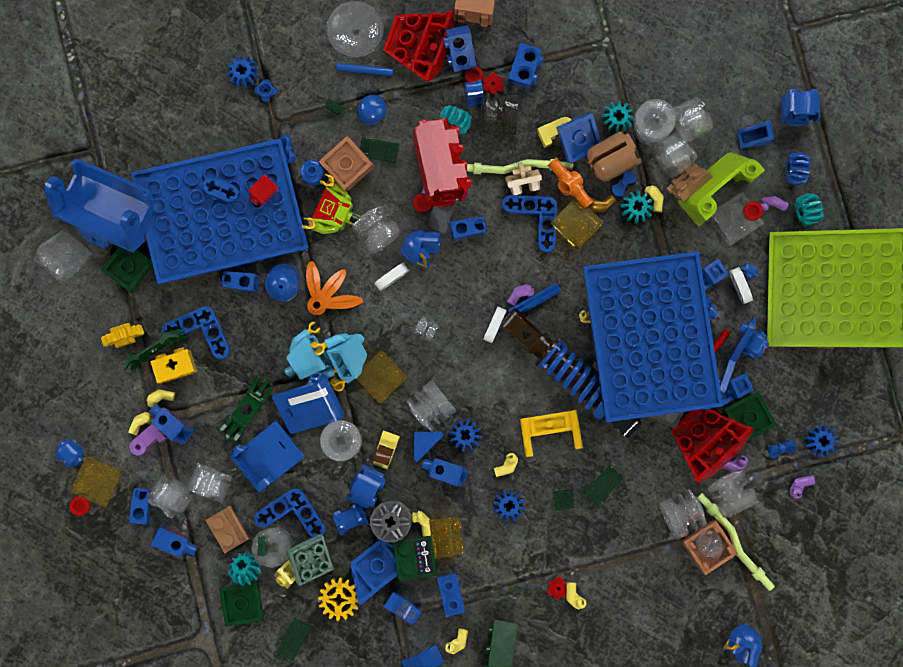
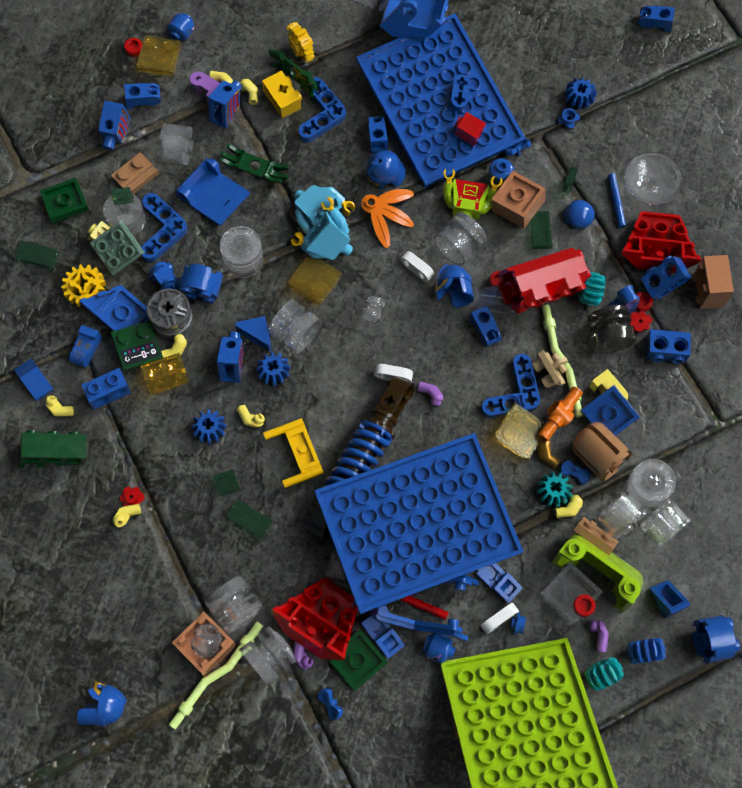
camera: 70 degrees right, 15 degrees down
(127, 268) = (365, 37): dark green plate -> none
(170, 496) = (155, 112): clear brick -> none
(244, 569) = (96, 192): teal gear -> none
(309, 405) = (271, 215): blue door -> none
(386, 449) = (242, 297): leg -> none
(537, 298) = (431, 411): blue axle -> none
(623, 114) = (646, 442): teal gear -> none
(799, 484) = (293, 733): medium lavender arm -> none
(816, 445) = (354, 752): blue gear -> none

